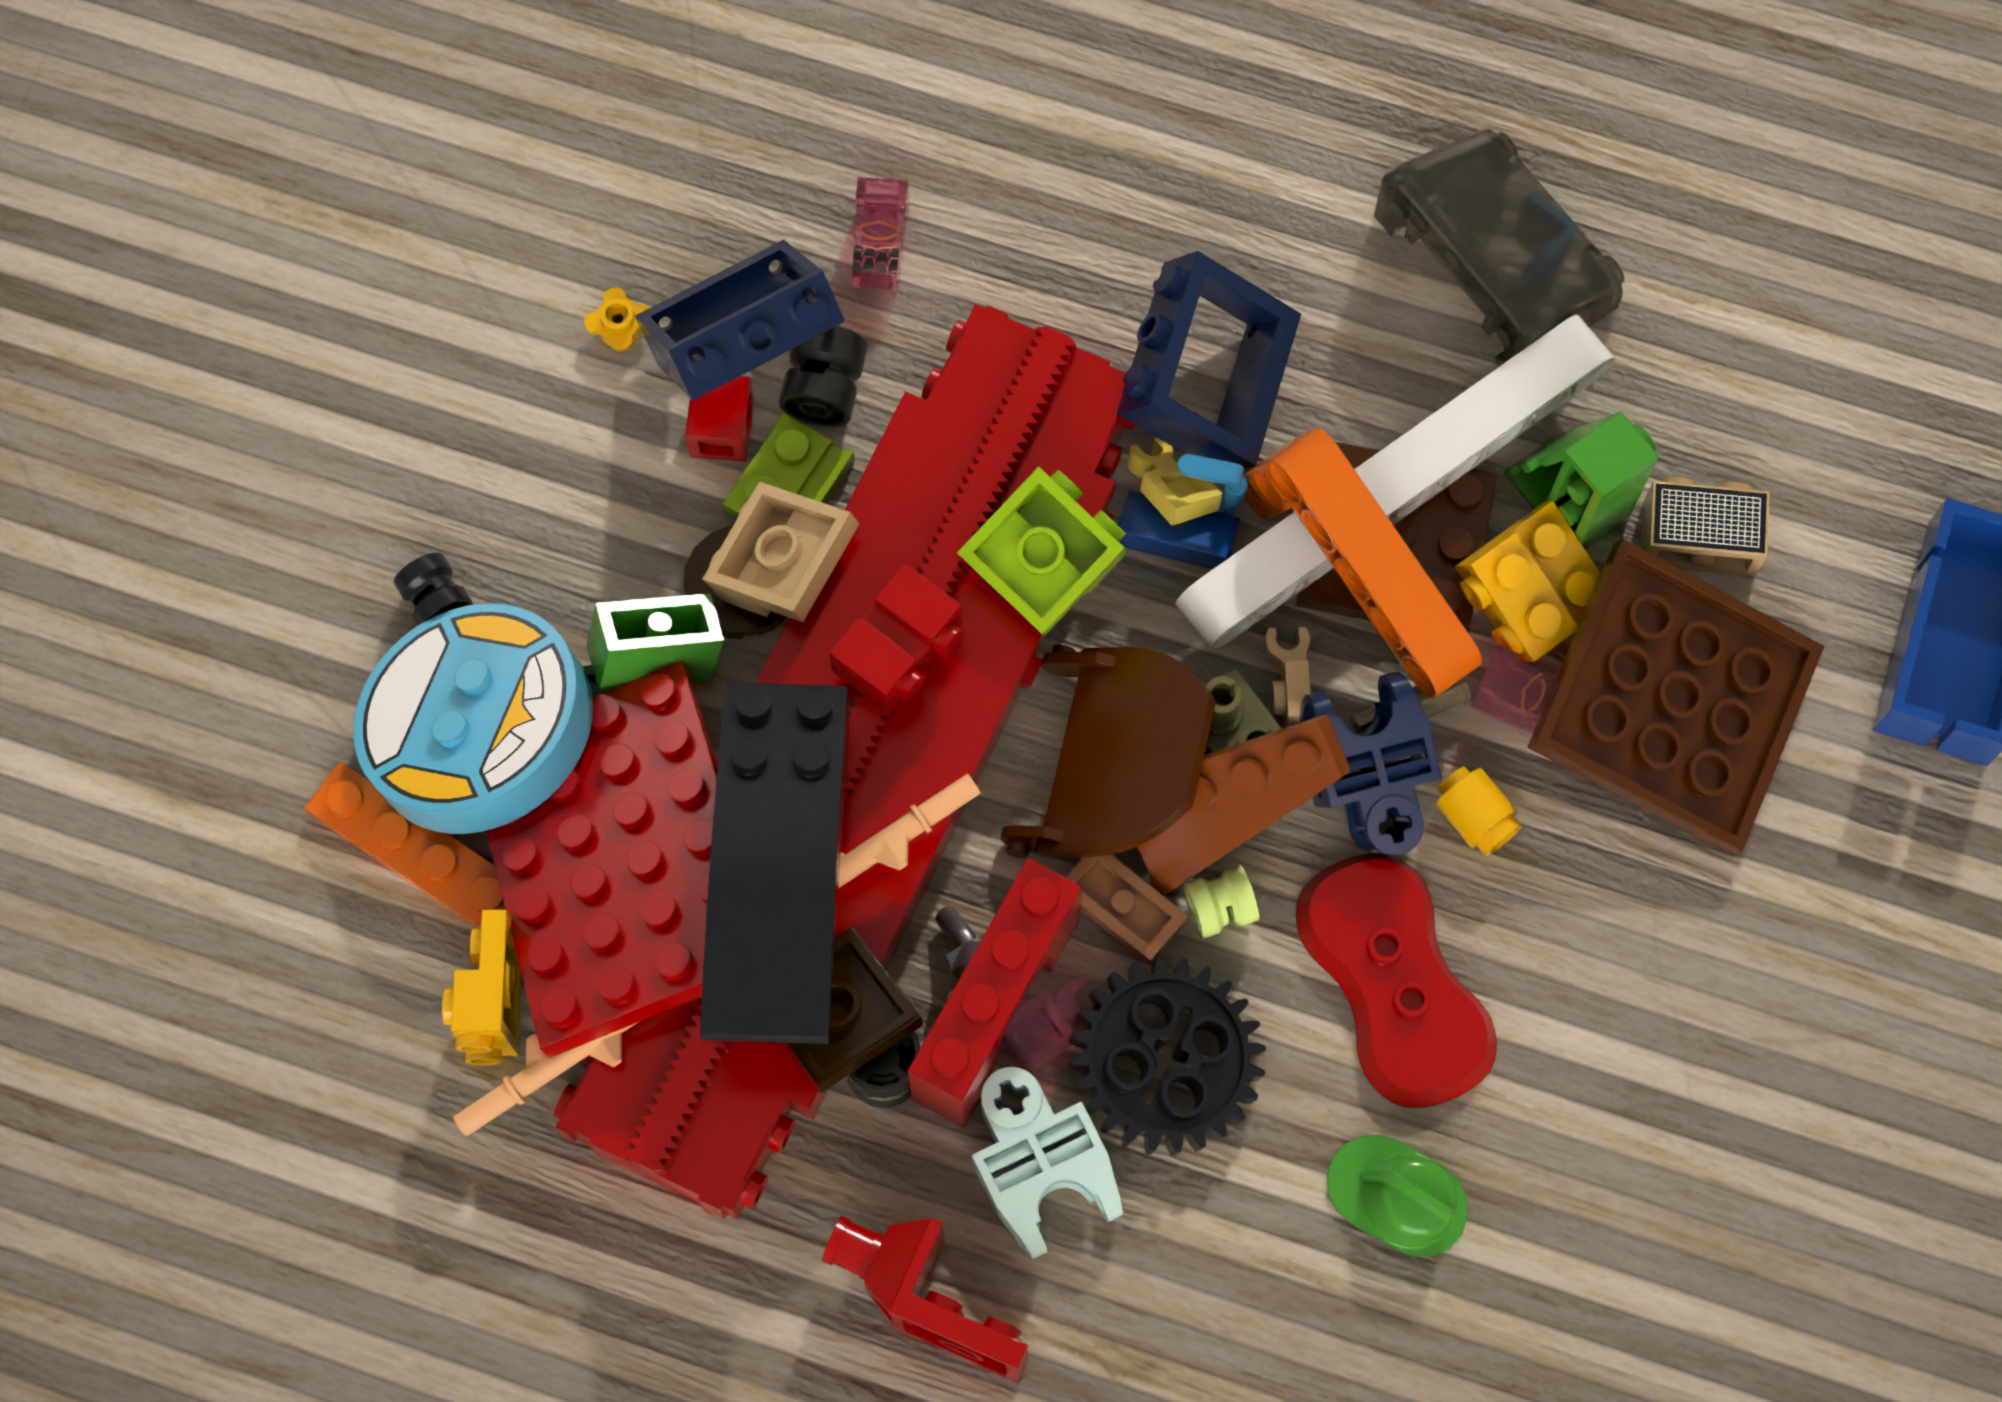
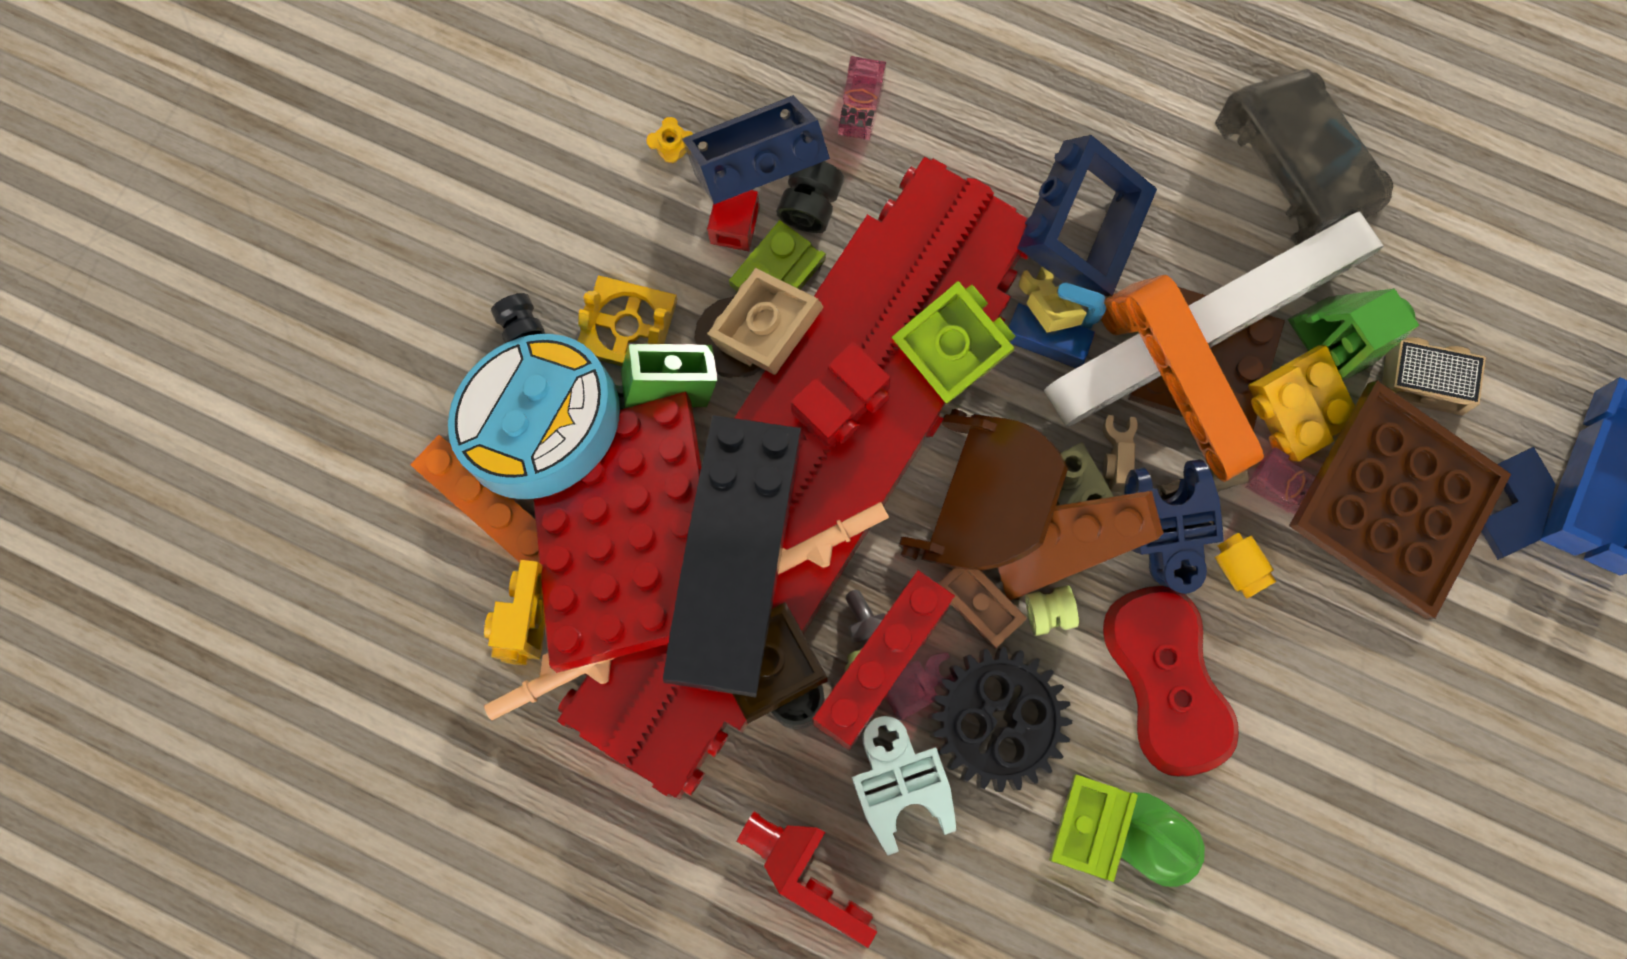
camera: 10 degrees right, 5 degrees up
(555, 534) = (608, 289): none -> yellow piece
(1310, 1187) = (1093, 827): none -> lime plate
(1849, 709) = (1531, 494): none -> dark blue tile

